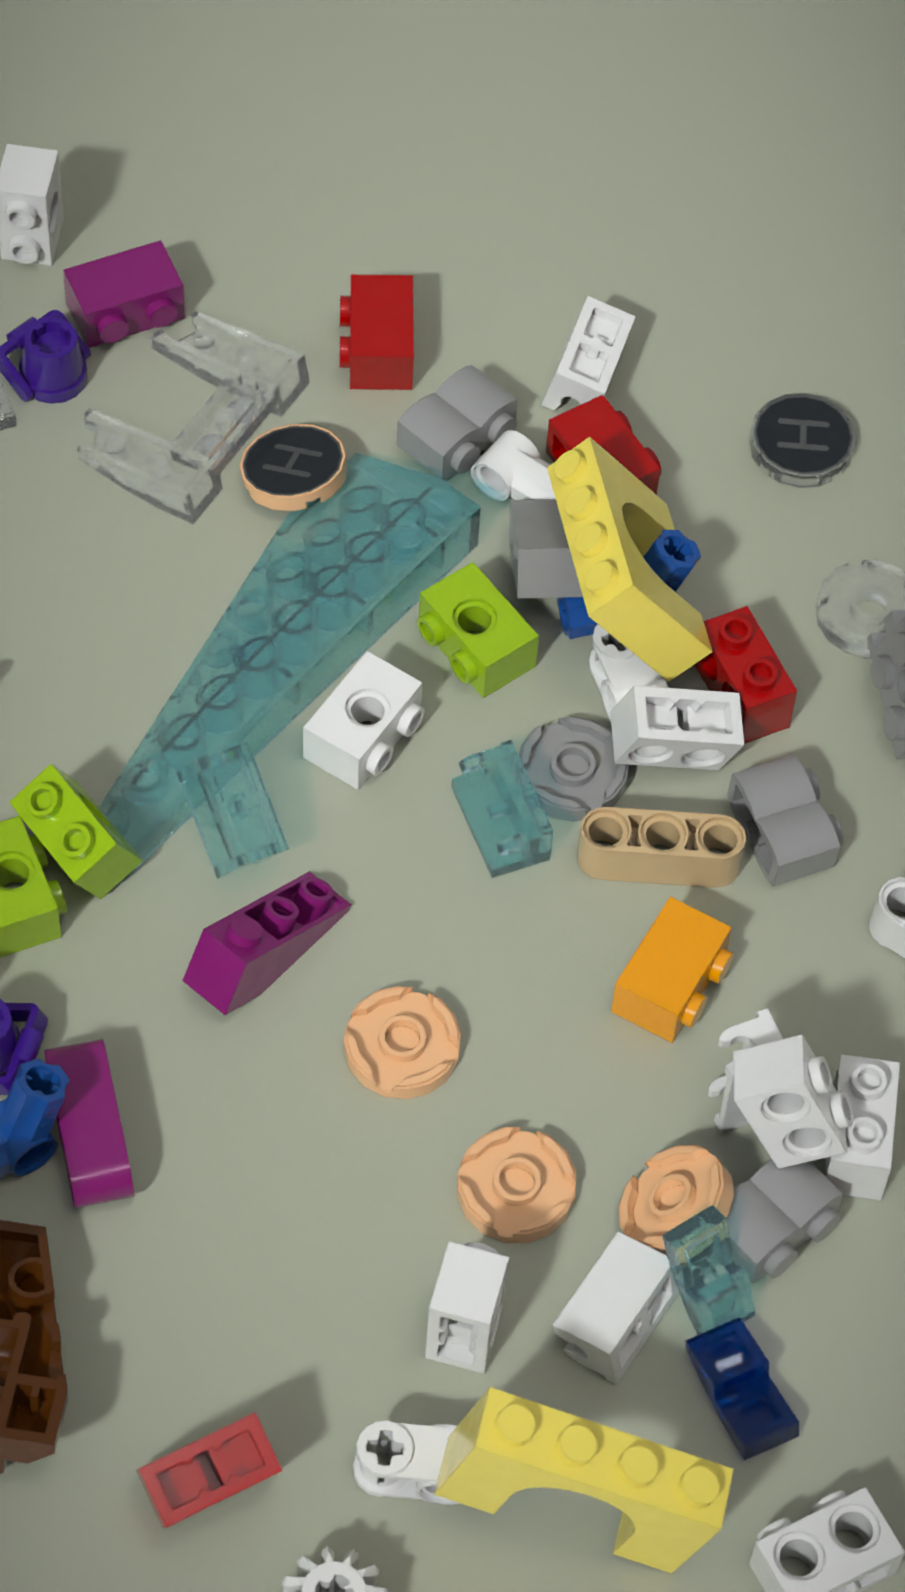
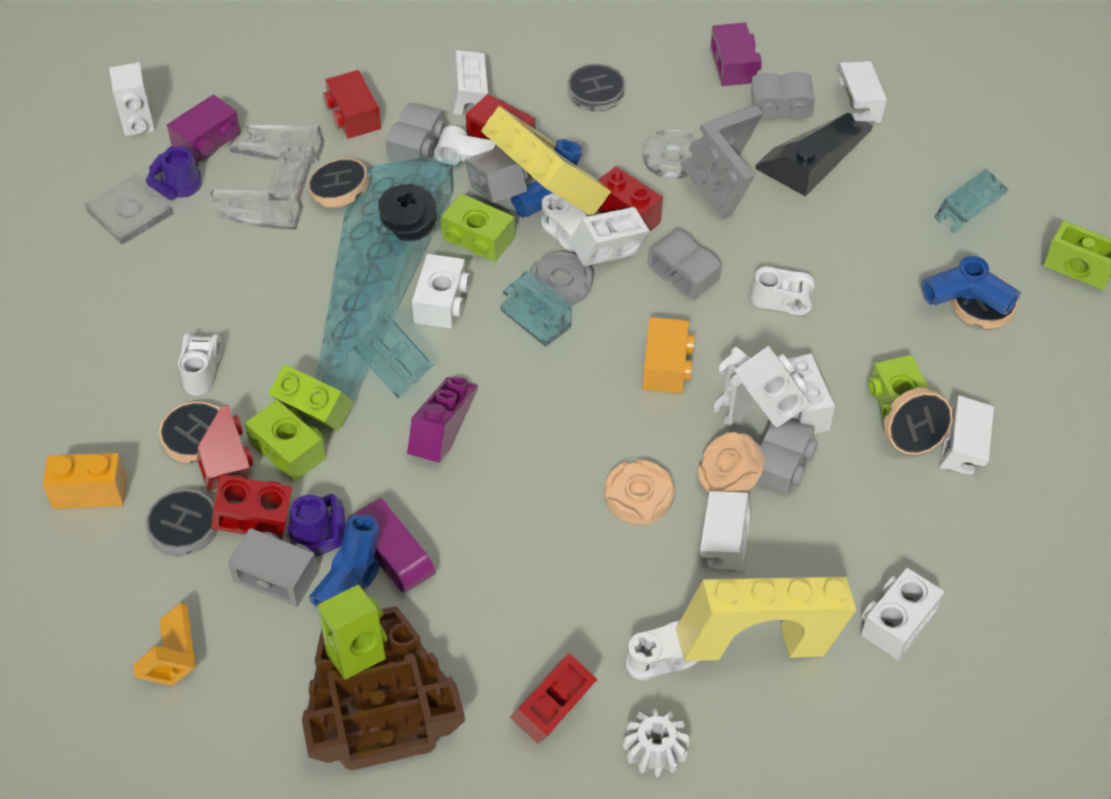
camera: 20 degrees left, 5 degrees down
(362, 570) = (408, 211): none -> black piece
(402, 1042) = (541, 443): light nougat tile -> none
(466, 1306) = (651, 557): white brick -> none
(636, 860) = (628, 298): tan beam -> none
(706, 1273) = (768, 497): clear light blue slope -> none
(741, 1389) = (808, 547): clear blue slope -> none

